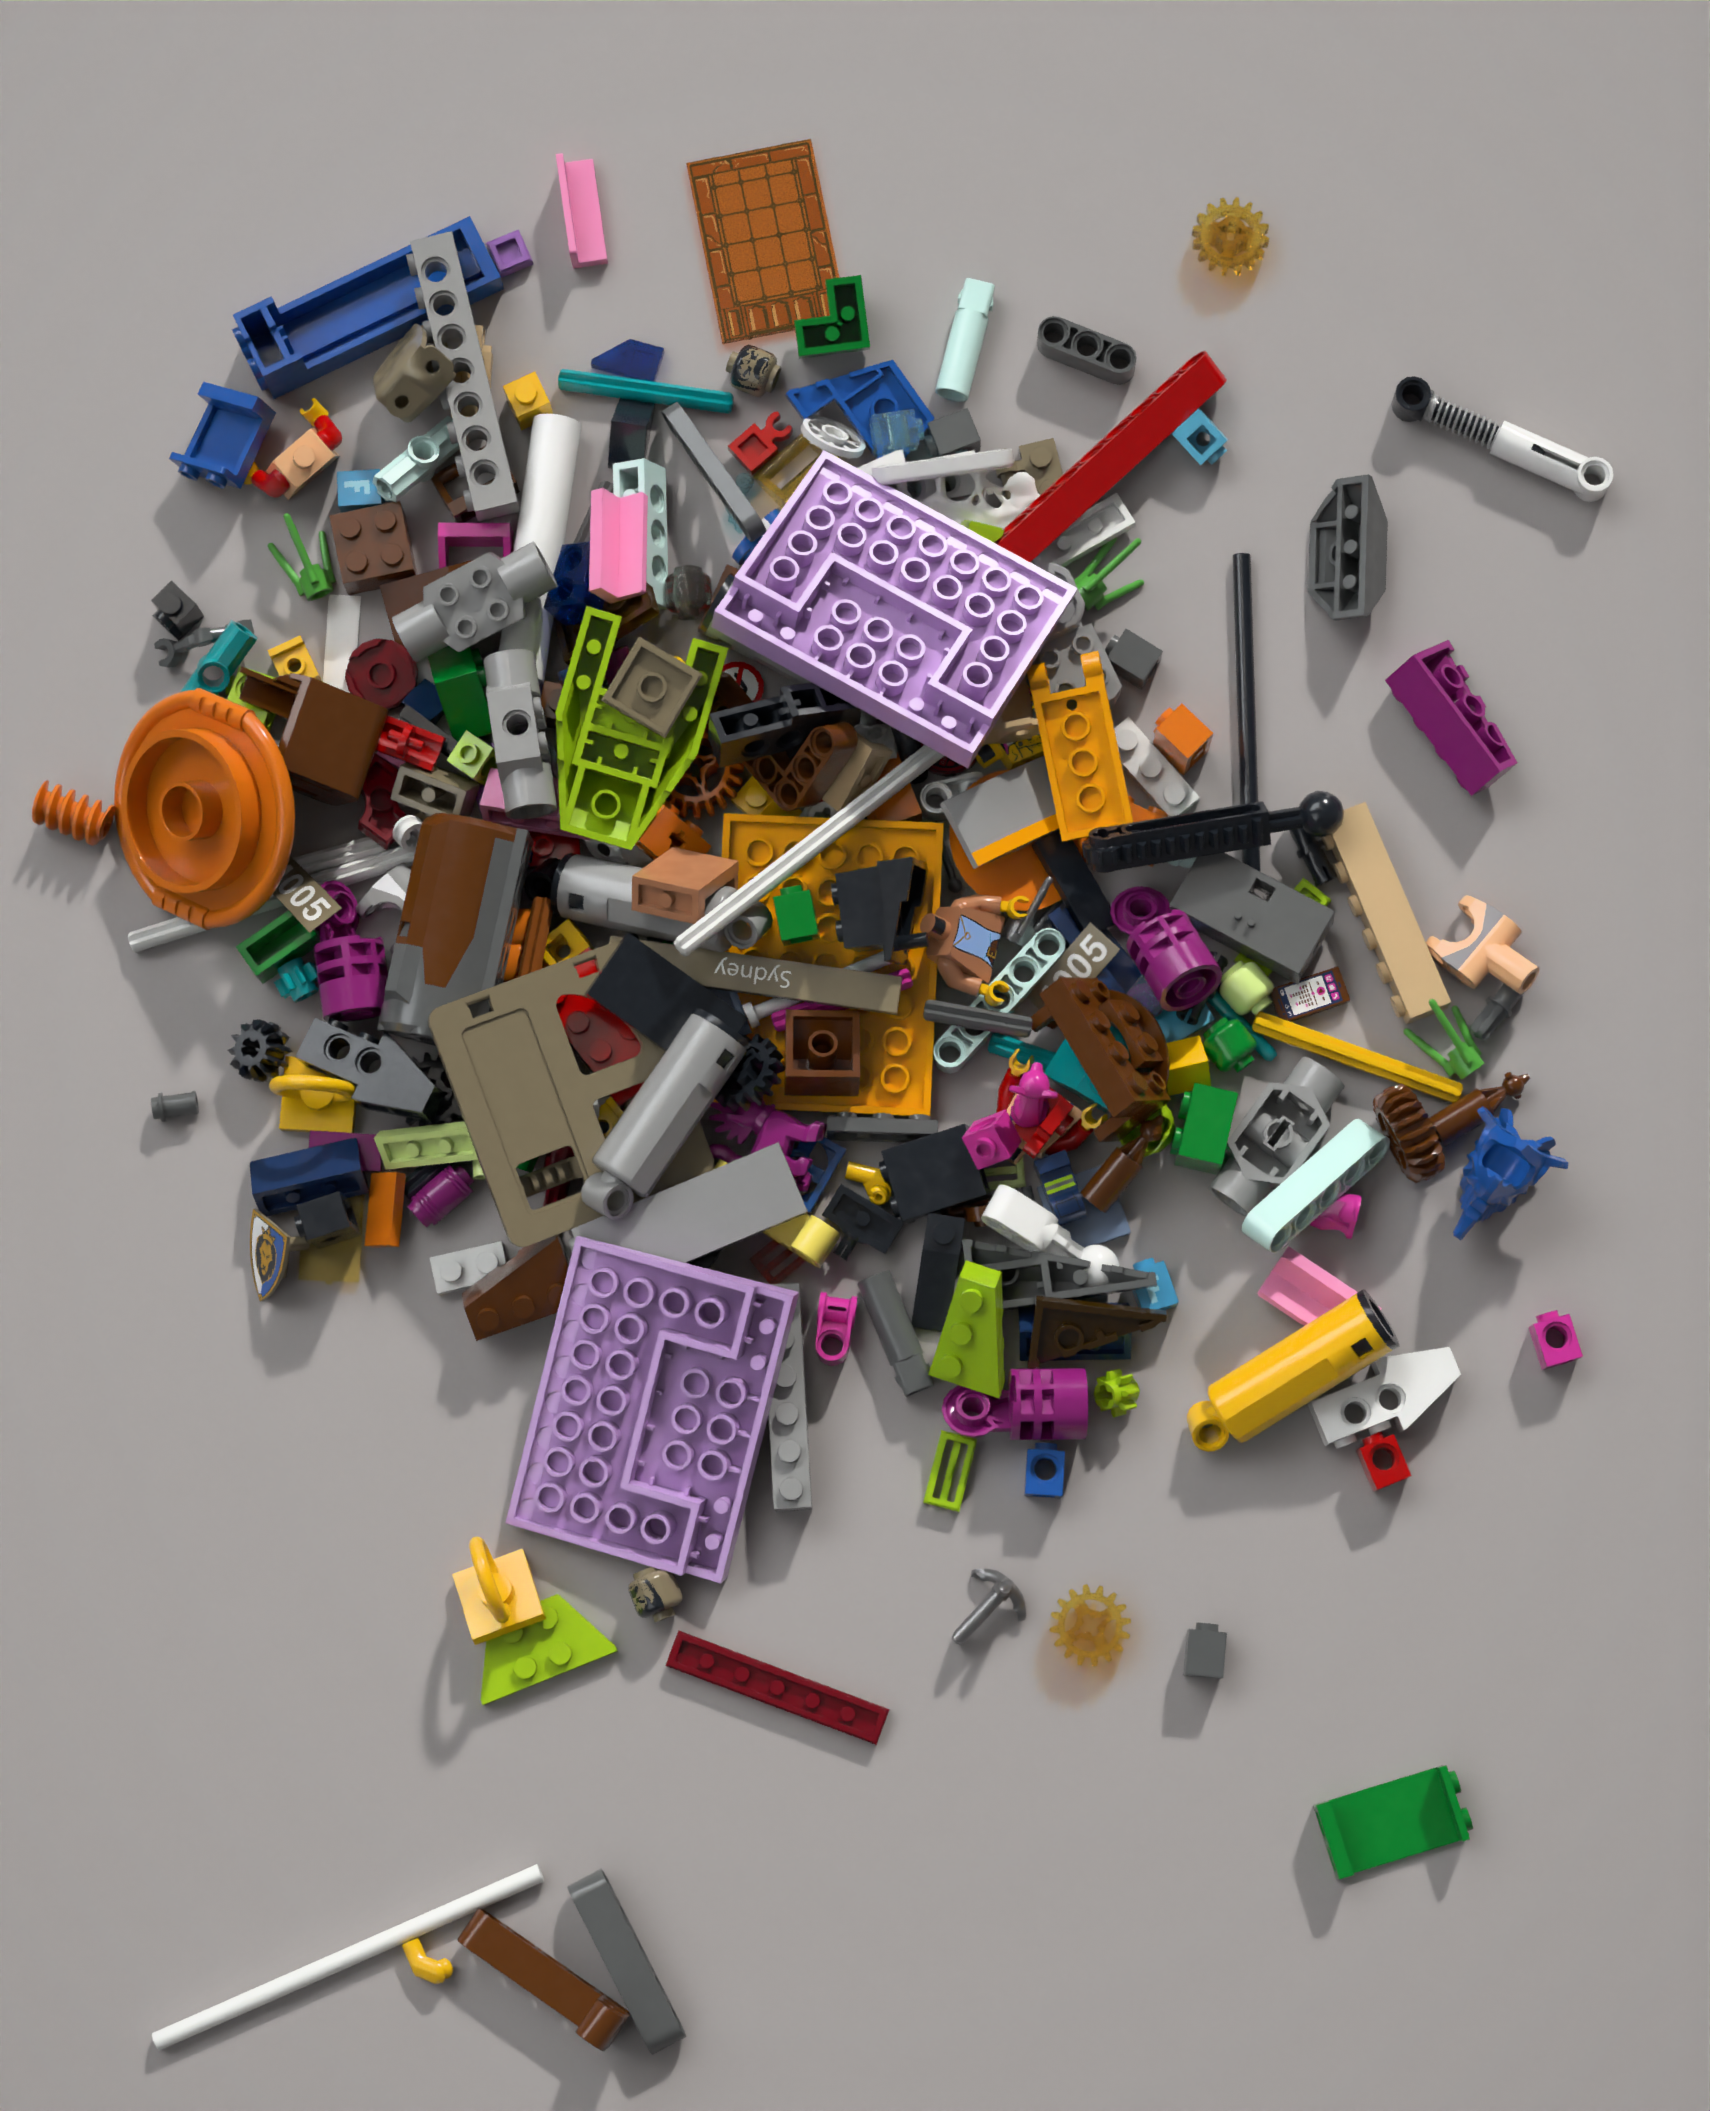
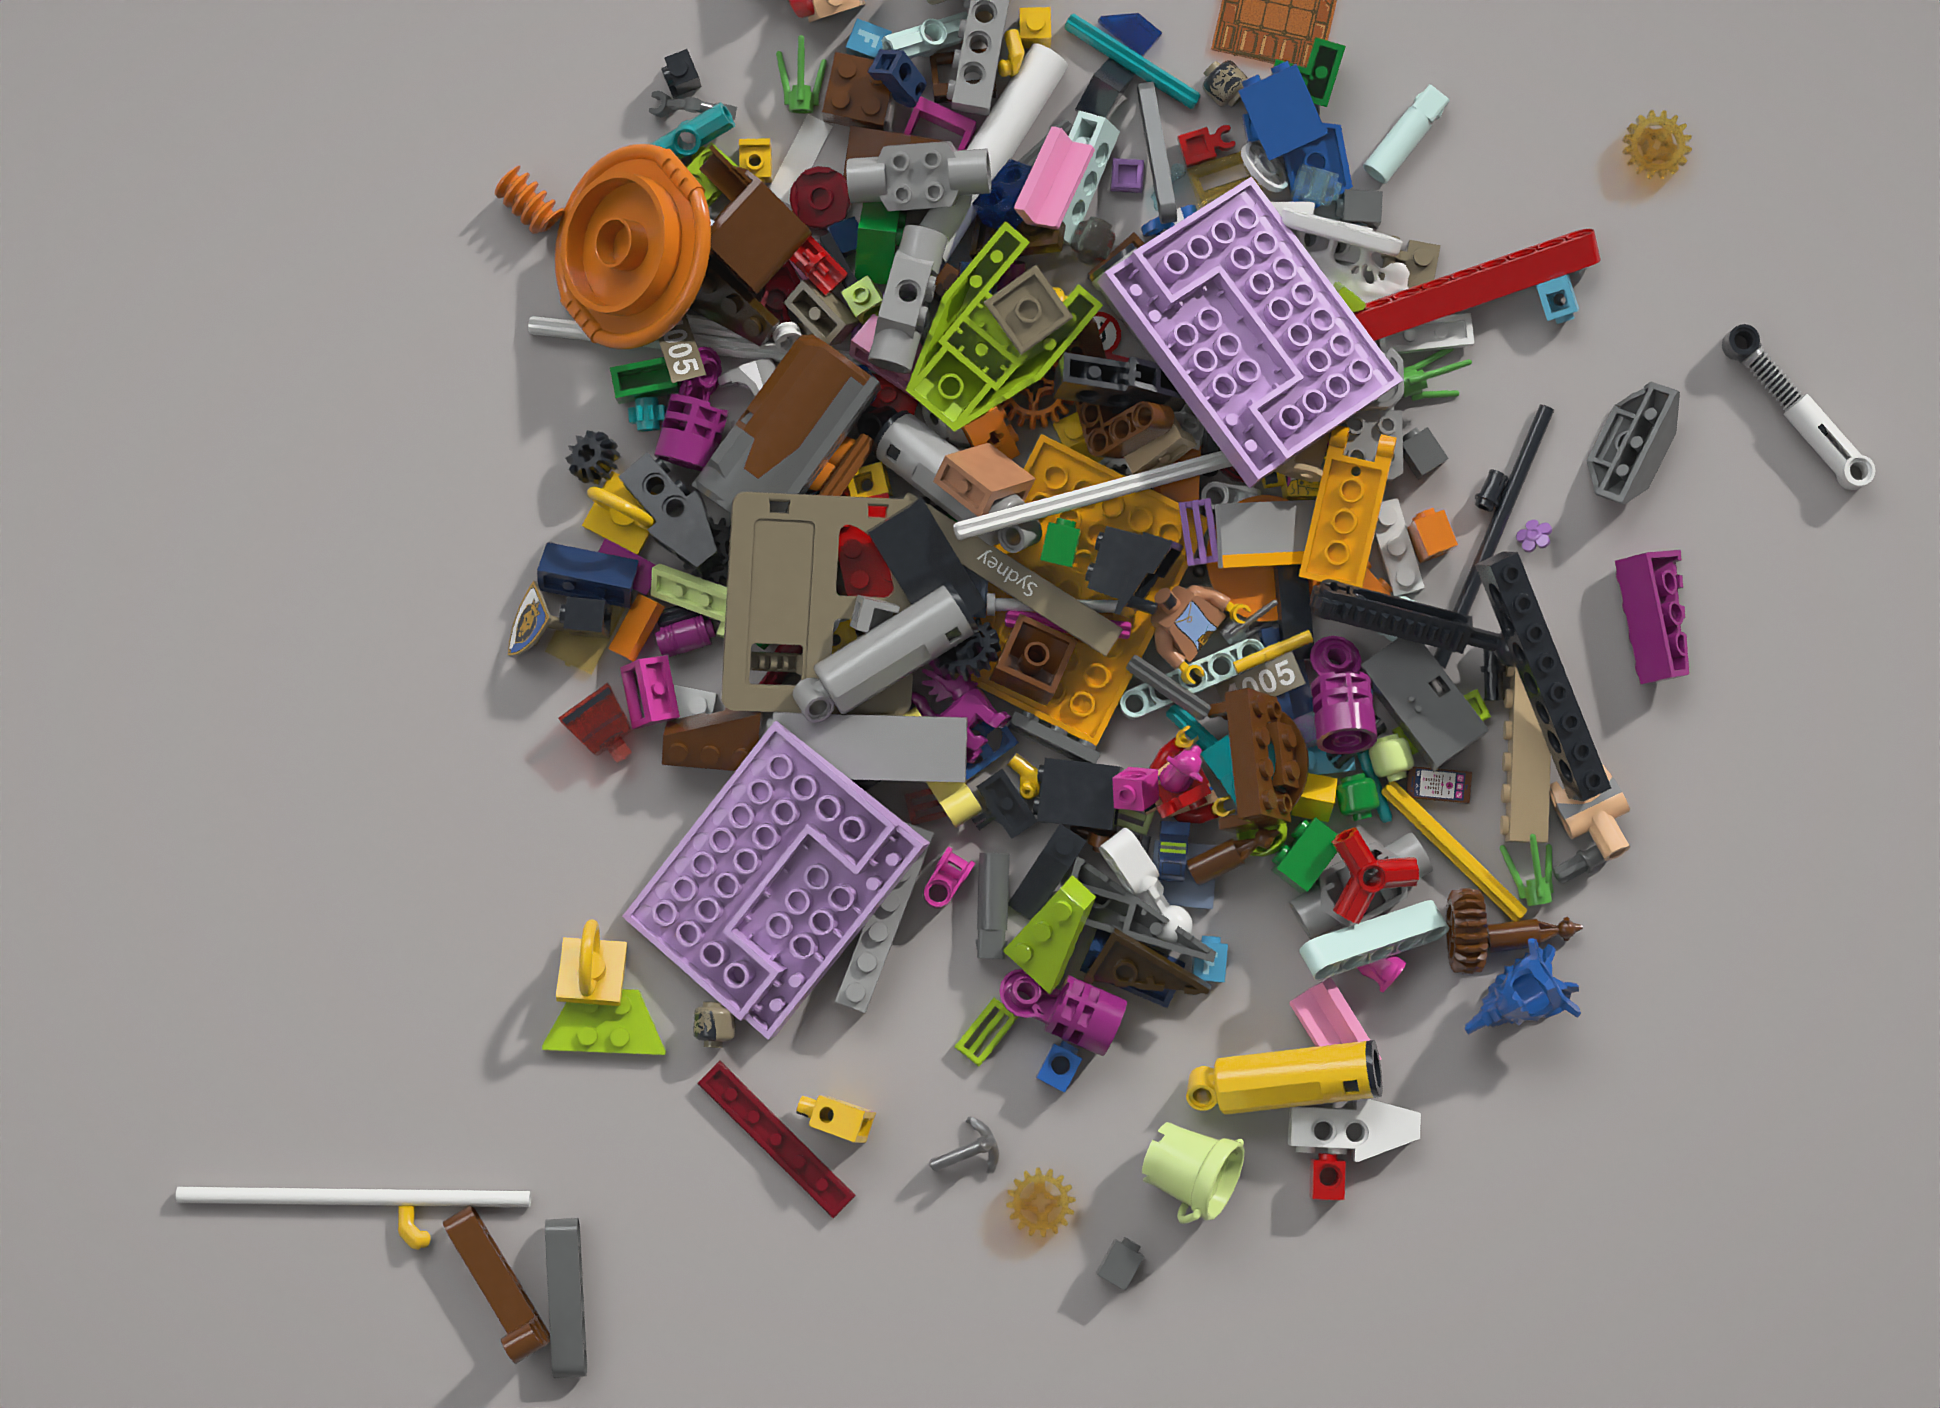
camera: 15 degrees right, 5 degrees up
(174, 1105) = (507, 470): dark grey pin -> none
(338, 826) = (732, 306): none -> dark brown wing
(391, 1328) = (600, 723): none -> clear red torso
(407, 510) = (898, 76): none -> dark blue leg
(436, 1267) = (655, 690): none -> dark pink tile
(520, 435) = (1015, 54): none -> yellow arm
(628, 1077) = (871, 612): none -> light grey panel
(693, 510) = (1127, 175): none -> medium lavender tile
(824, 369) = (1281, 110): none -> blue panel
(845, 1632) = (848, 1120): none -> yellow torso
(919, 814) = (1186, 534): none -> medium lavender tile
(1071, 932) = (1272, 651): none -> yellow piece
(1077, 336) = (1496, 170): dark grey beam -> none
(1116, 1392) = (1143, 1030): lime gear -> none
(1222, 666) = (1491, 490): none -> black pin
(1238, 1515) = (1194, 1170): none -> yellowish green piece
(1289, 692) = (1534, 535): none -> medium lavender plant
(1297, 1108) = (1358, 859): none -> red piece
(1365, 827) = (1543, 676): none -> black brick
(1550, 1356) = (1515, 1155): dark pink brick -> none

